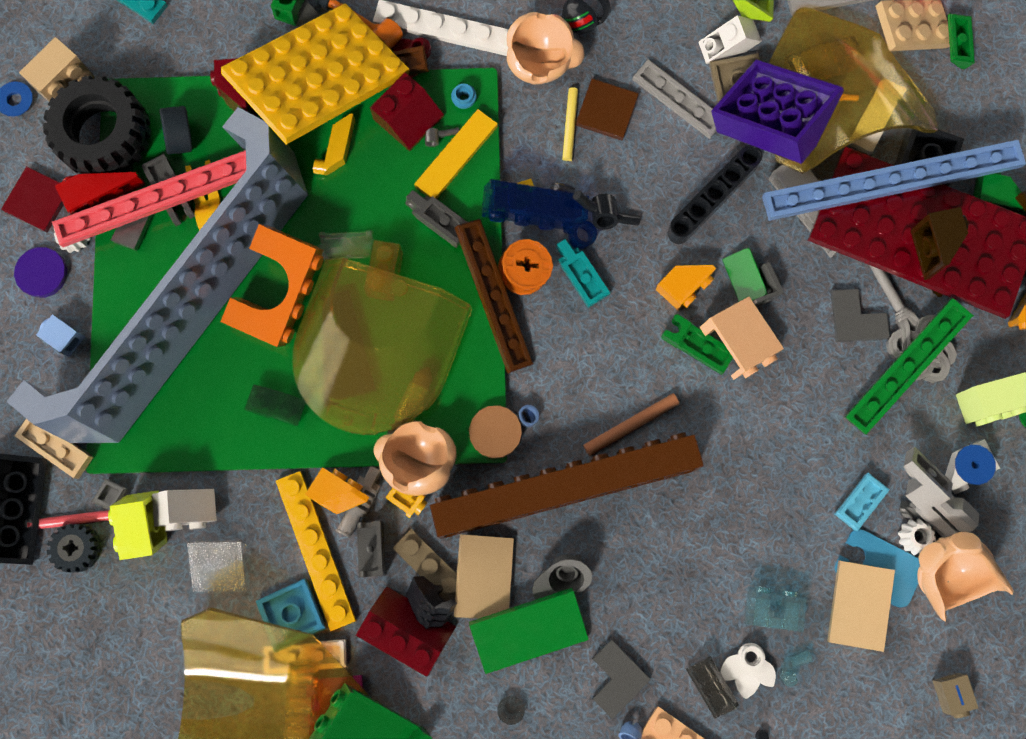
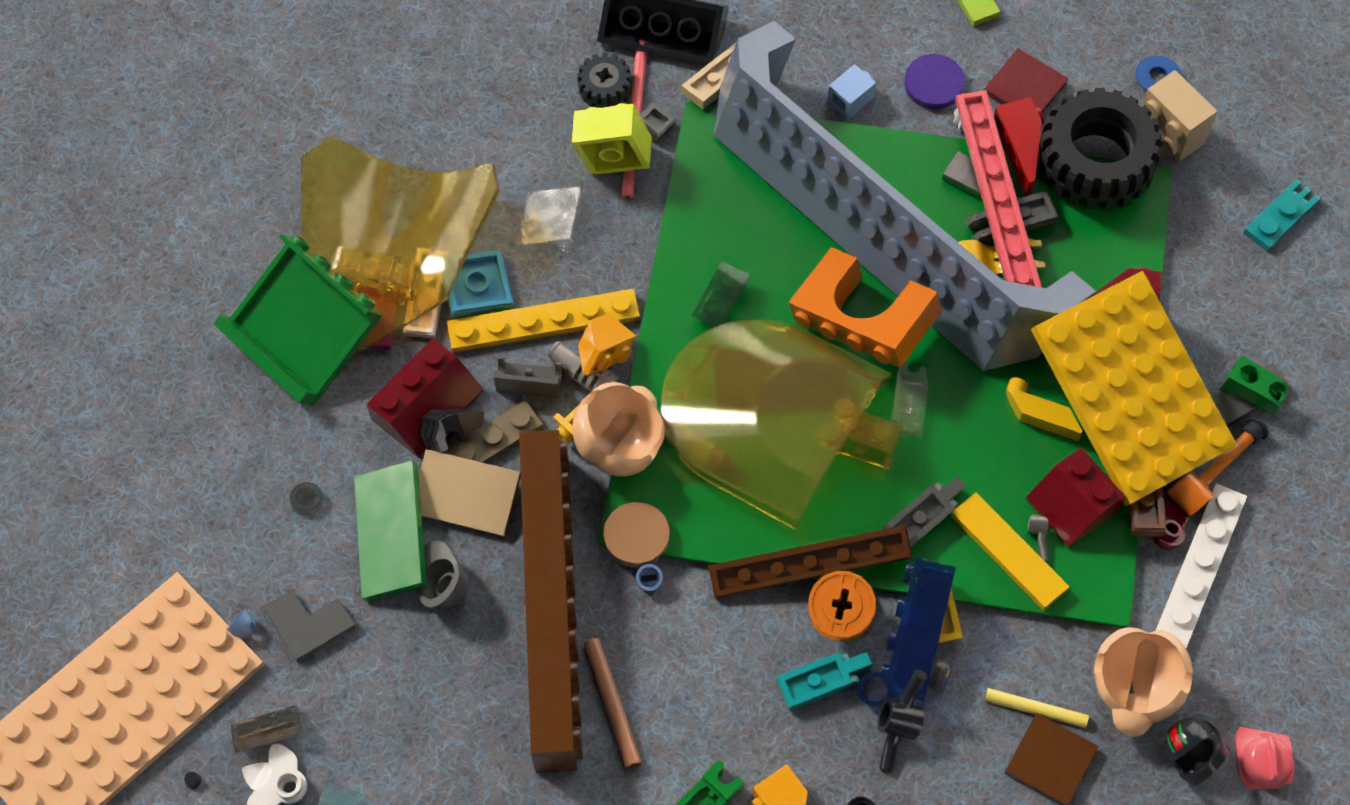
camera: 100 degrees right, 15 degrees down
(176, 130) = (1085, 231): black wheel -> none
(184, 507) = (620, 186): white brick -> none
(463, 89) = (1094, 565): dark azure plate -> none

